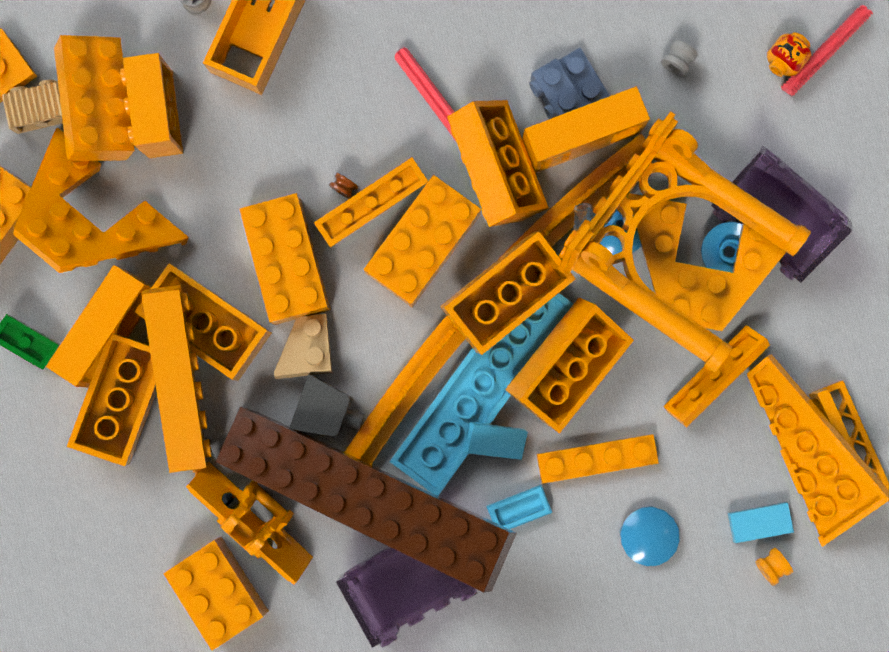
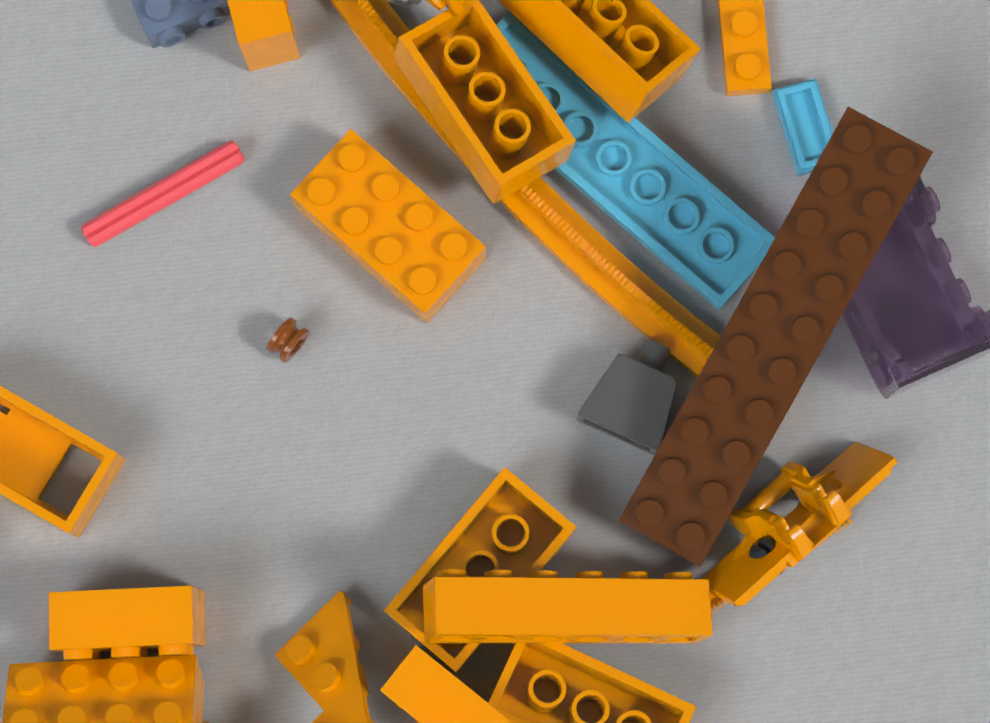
camera: 85 degrees left, 5 degrees down
(216, 593) = (901, 588): light orange brick -> none
(284, 259) = (393, 437): light orange brick -> none
(306, 349) = (536, 417): tan wing -> none
(371, 202) = (319, 297): light orange fence -> none
(495, 441) = (702, 147): medium azure tile -> none
(497, 162) = (281, 99): light orange brick -> none

